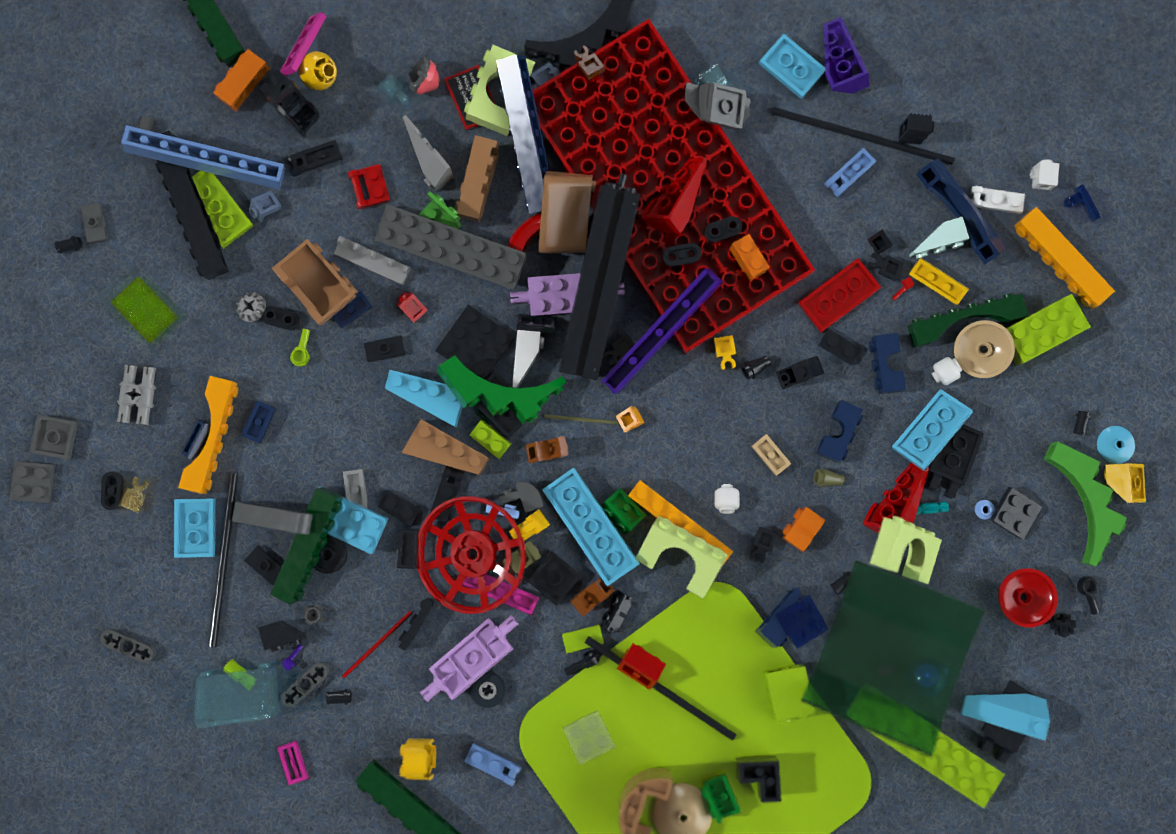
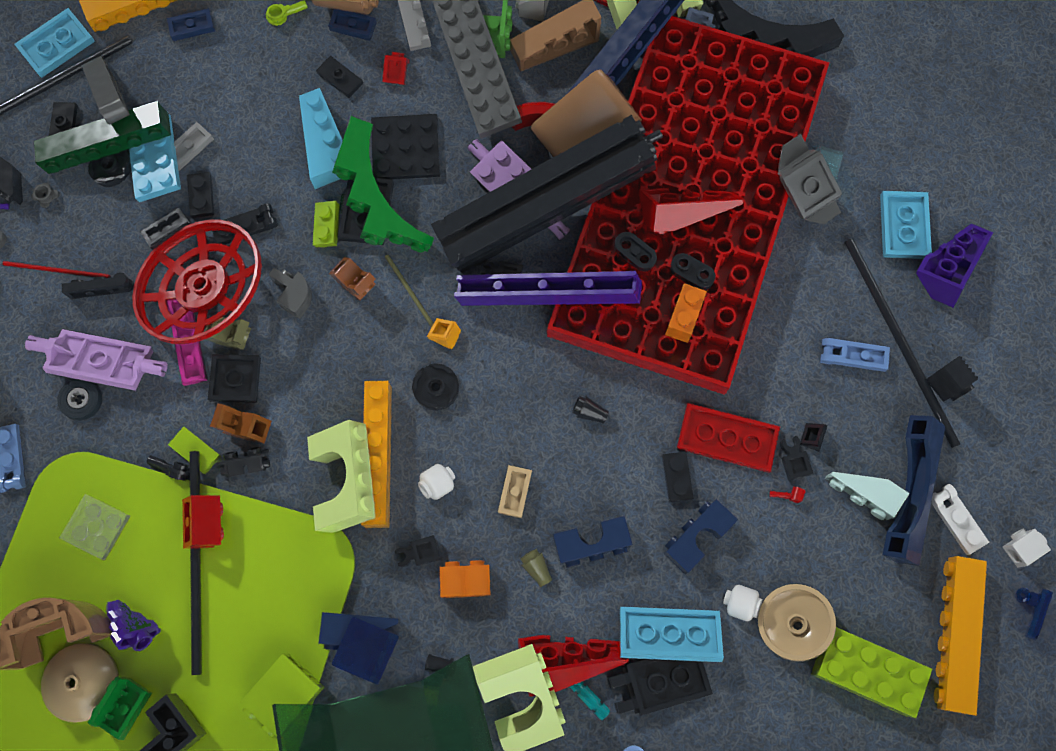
camera: 55 degrees right, 10 degrees down
(436, 446) = (282, 183): medium nougat wedge -> none
(509, 508) = (268, 288): light blue plate -> none
(527, 350) = (429, 194): white slope -> none
(532, 525) = (267, 319): yellow piece -> none
(536, 323) = (465, 181): black plate -> none
(589, 65) = (741, 41): reddish brown plate -> none
(590, 526) = (308, 373): medium azure plate -> none
(622, 511) = (347, 392): green bracket -> none
(672, 448) = (433, 375): none -> black plate
(673, 758) = (130, 627): none -> dark purple rock
(725, 348) = (583, 368): yellow plate -> none
(800, 372) = (620, 456): black slope -> none
(938, 281) = (825, 523): yellow plate -> none
(1004, 310) = (856, 615): dark green arch -> none

